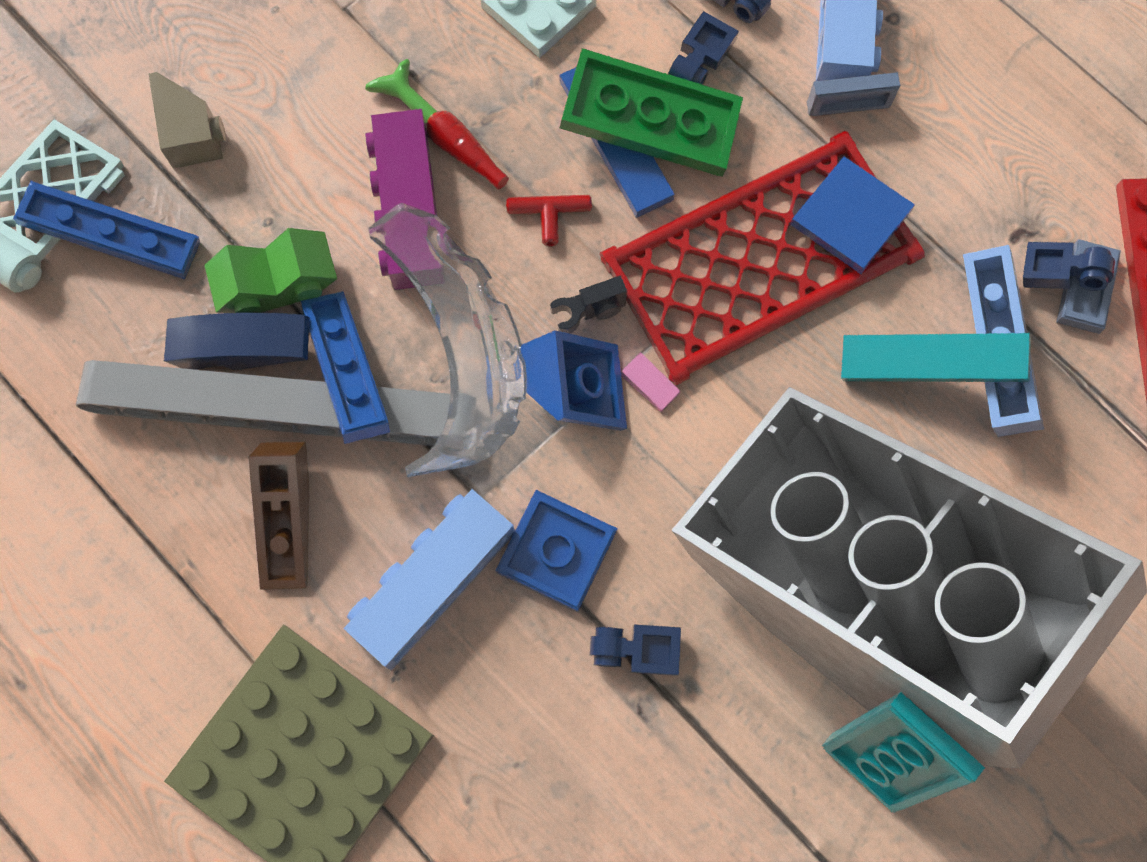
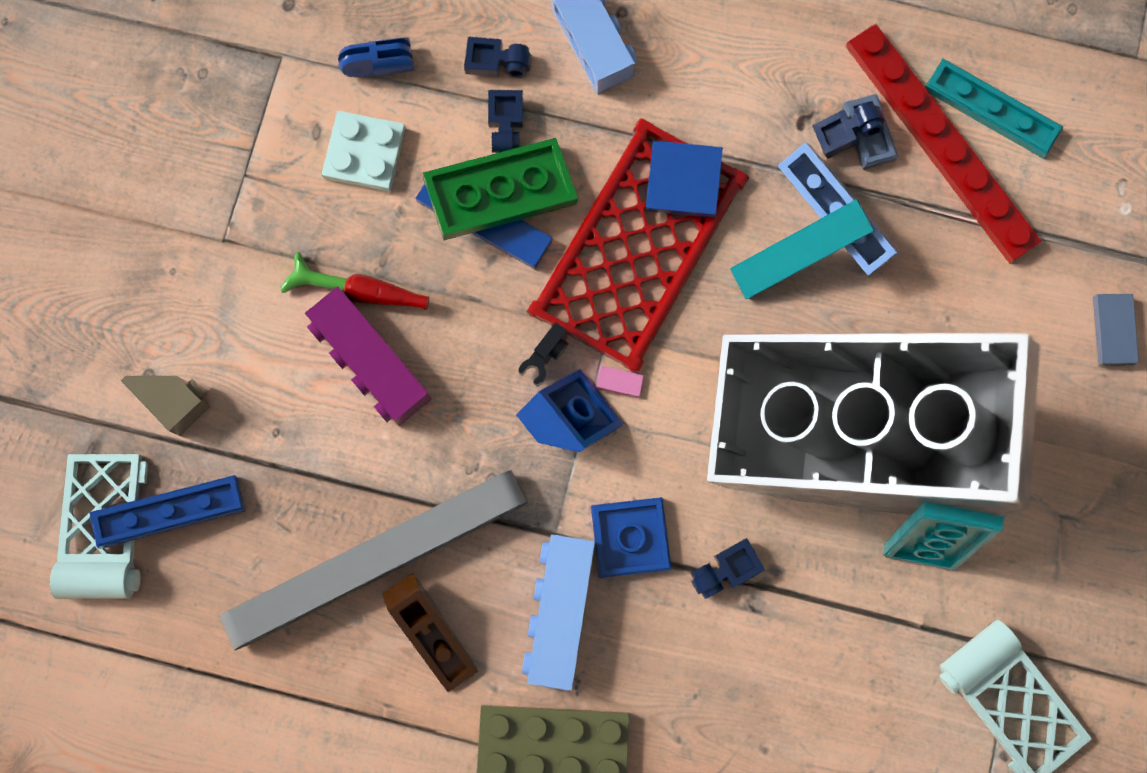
camera: 30 degrees left, 5 degrees up
(236, 340) = (317, 533): dark blue slope -> none
(263, 279) = (301, 479): bright green brick -> none
(345, 368) = (407, 505): blue tile -> none
(476, 333) = (487, 429): clear windscreen -> none
(549, 208) = (470, 300): red piece -> none
(853, 94) = (630, 89): sand blue tile -> none

